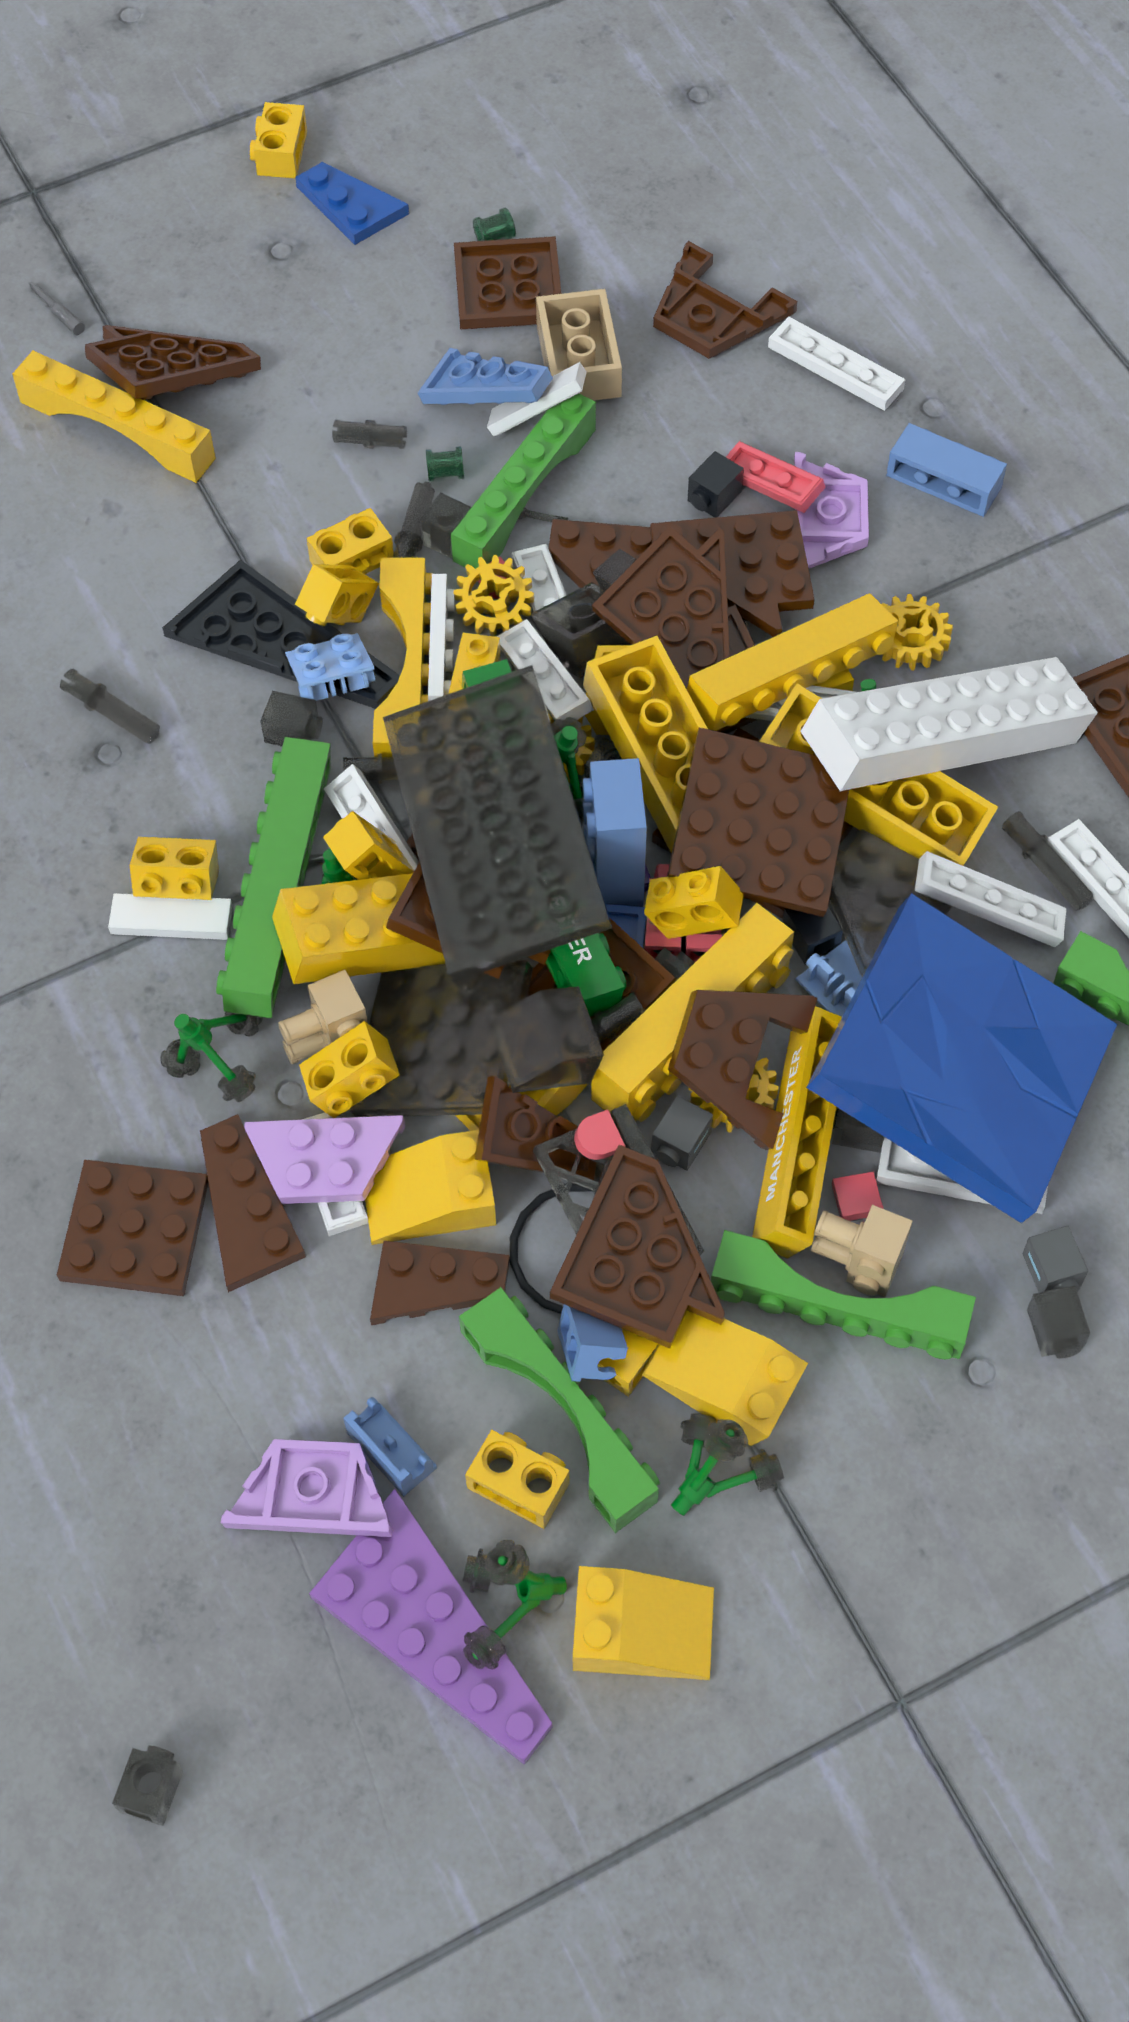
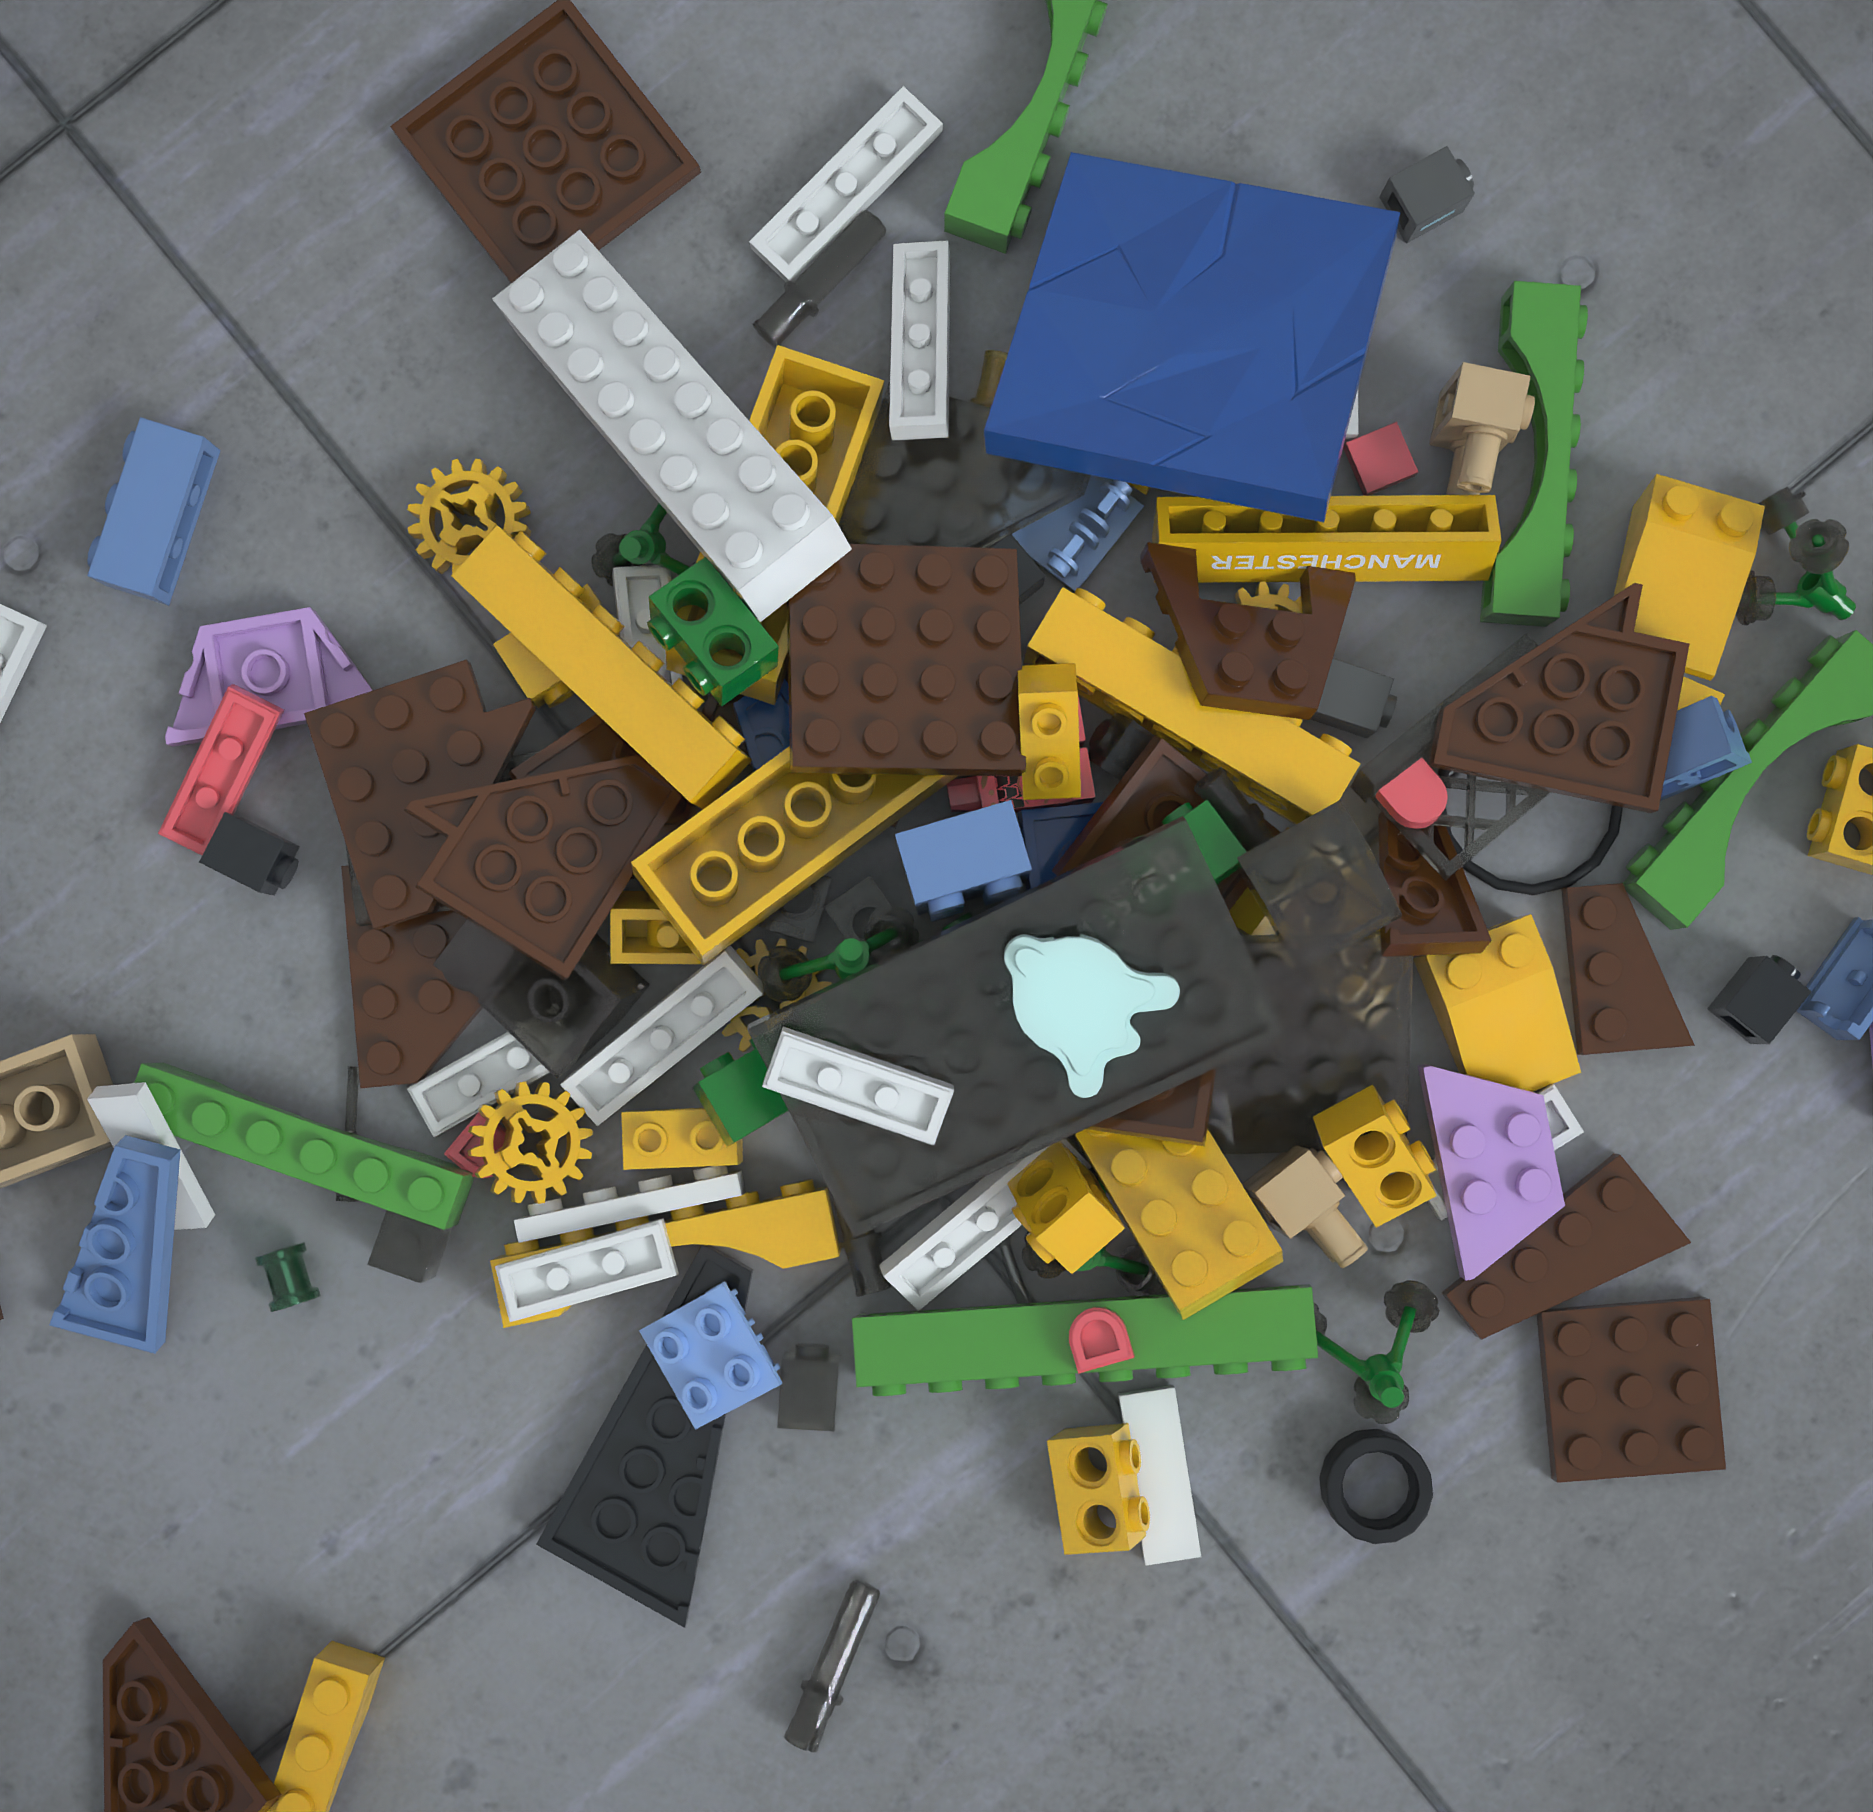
camera: 100 degrees left, 25 degrees up
(114, 1016) = (1410, 1514): none -> black tyre
(274, 866) = (1099, 1339): none -> coral tile
(336, 594) = (588, 1376): yellow brick -> none
(355, 541) = (490, 1371): yellow brick -> none
(369, 434) = (249, 1409): clear smoke pin -> none
(392, 1370) = (1760, 998): none -> black brick
(404, 603) = (586, 1270): none -> white tile
(409, 539) = (411, 1297): clear smoke axle -> none
(479, 720) = (858, 1085): none -> white tile
(500, 847) = (1079, 1002): none -> light aqua tile
(794, 694) = (724, 626): none -> green brick
(1058, 1322) = (1510, 180): clear smoke brick -> none

